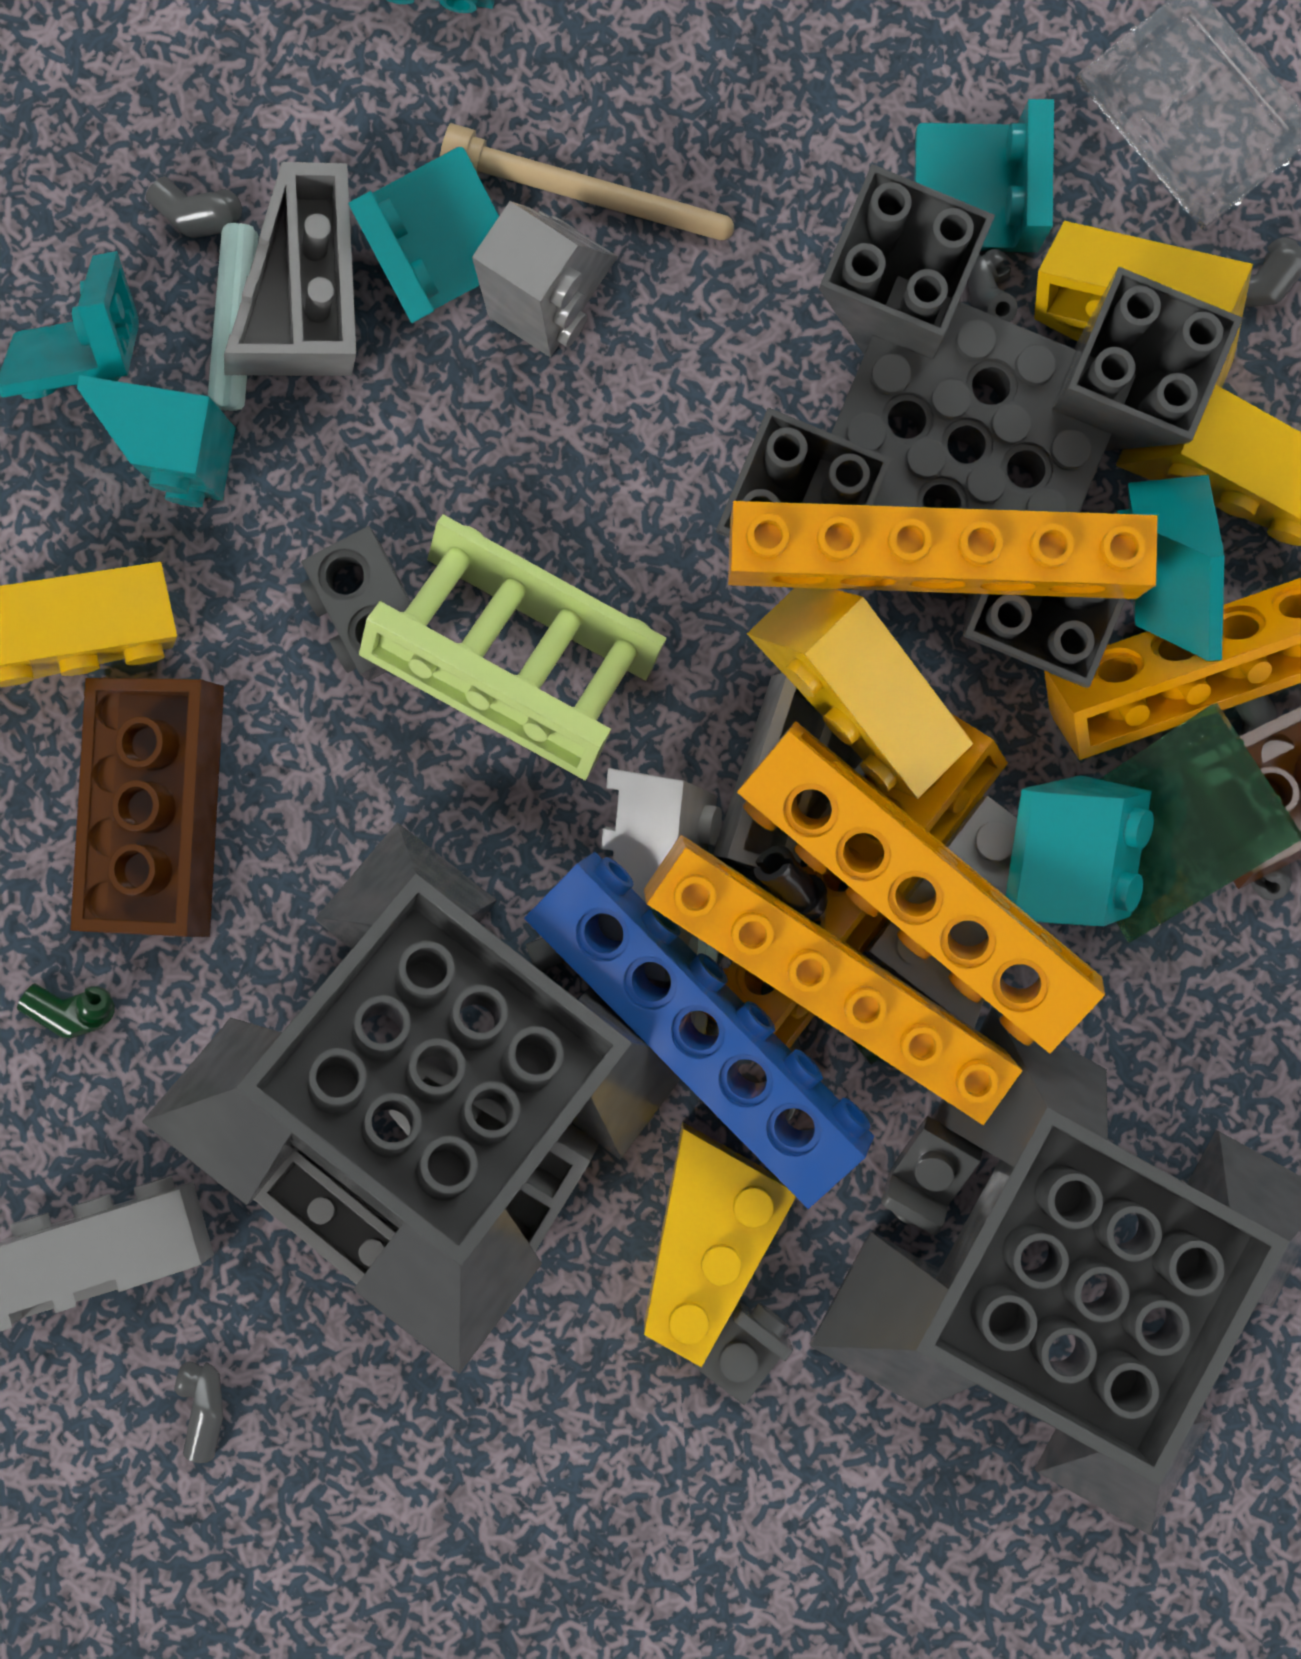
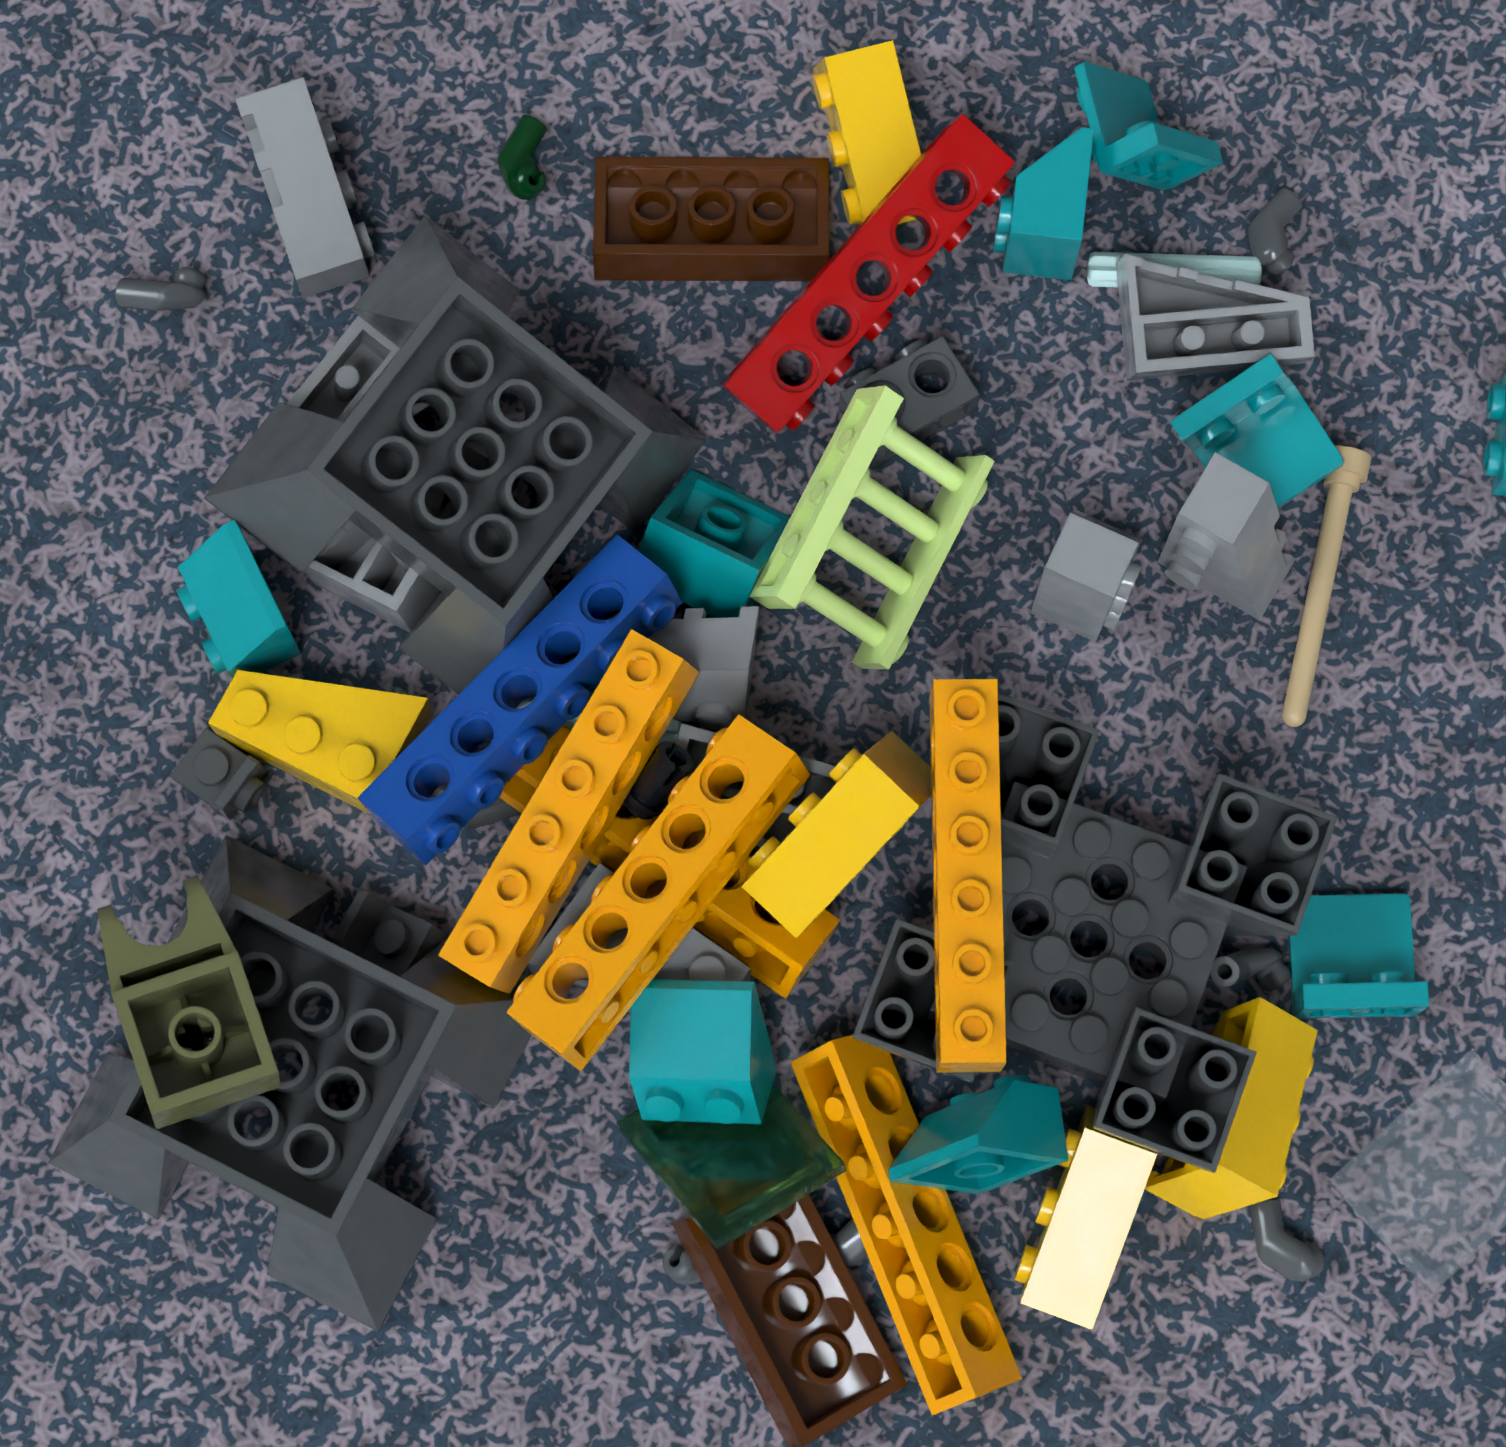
camera: 85 degrees right, 10 degrees down
(126, 502) = (958, 150): none -> red brick
(519, 818) = (712, 543): none -> teal slope
(566, 1333) = (235, 604): none -> teal slope
(571, 414) = (1088, 576): none -> light grey wedge
(1040, 1426) = (182, 989): none -> olive brick

